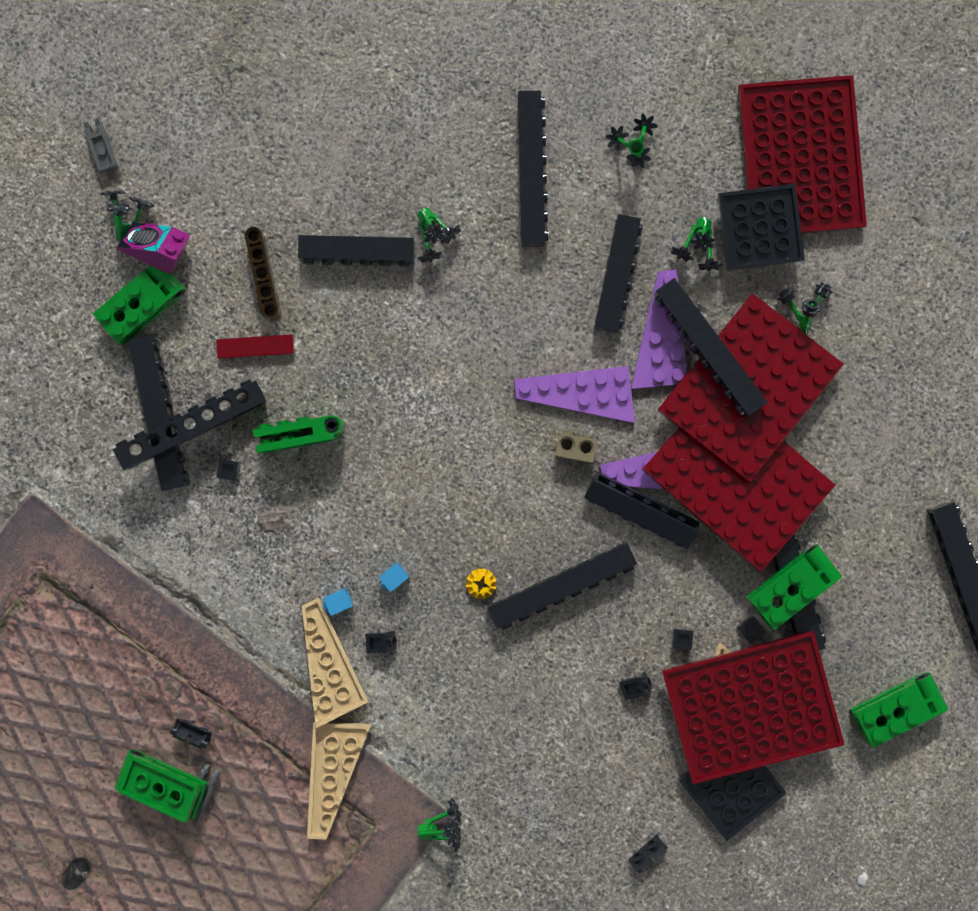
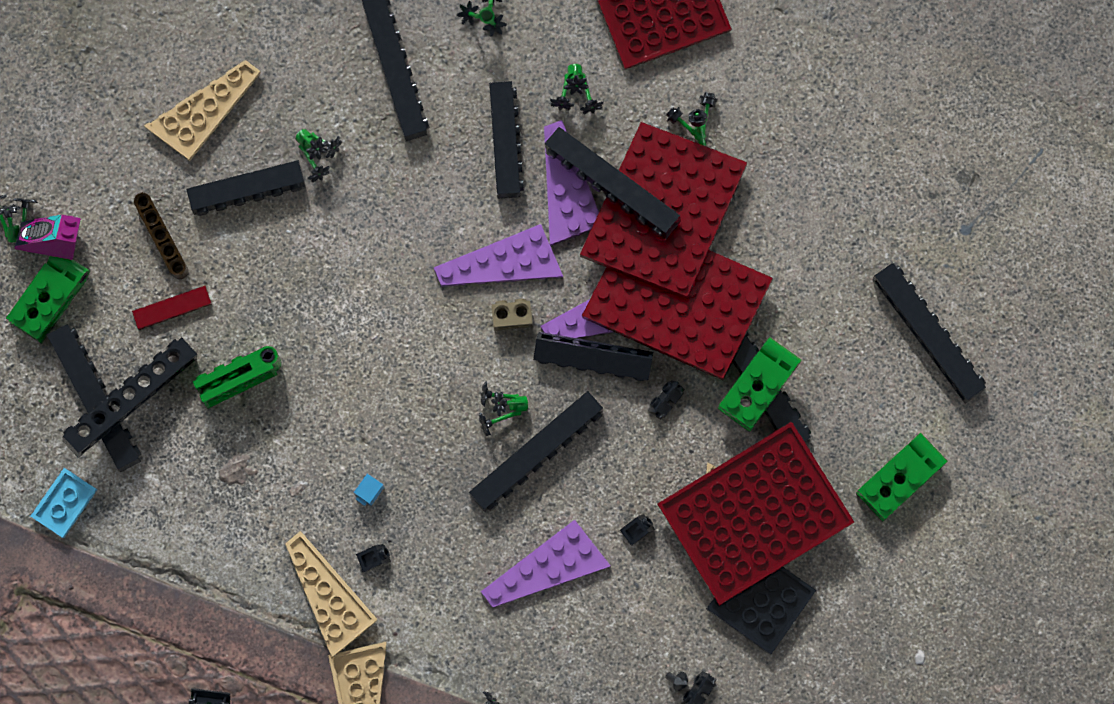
camera: 10 degrees left, 10 degrees down
(104, 506) = (63, 503): none -> medium azure plate
(228, 469) = (177, 433): black plate -> none
(333, 163) = (198, 116): none -> tan wing
(337, 602) = (320, 530): dark azure brick -> none
(477, 575) = (464, 480): yellow gear -> none
(552, 693) = (555, 562): none -> medium lavender wing
(555, 535) = (516, 404): none -> plant
(633, 838) = (679, 681): none -> black plate
(682, 639) = (670, 470): black plate -> none
(690, 574) = (669, 392): none -> black hinge
(751, 629) = (735, 442): black plate -> none
(761, 227) = (629, 57): black plate -> none

